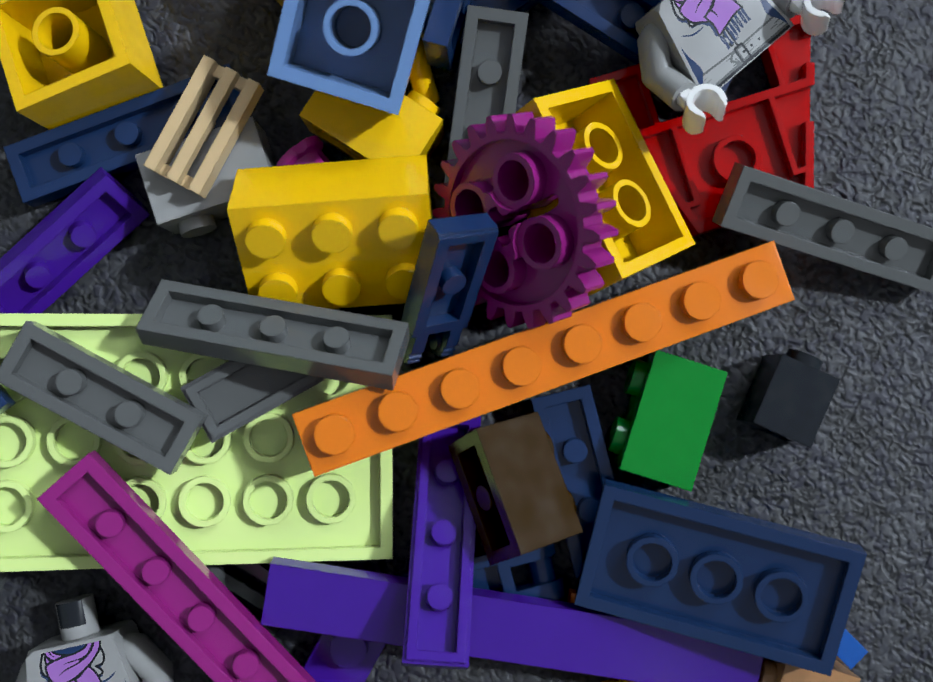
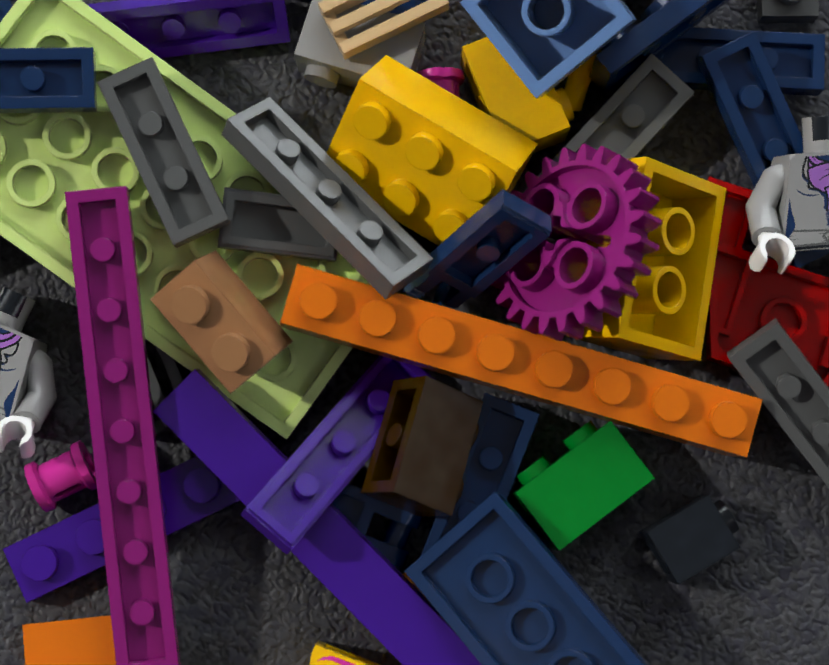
camera: 35 degrees right, 5 degrees down
(261, 509) = (221, 320): none -> medium nougat brick

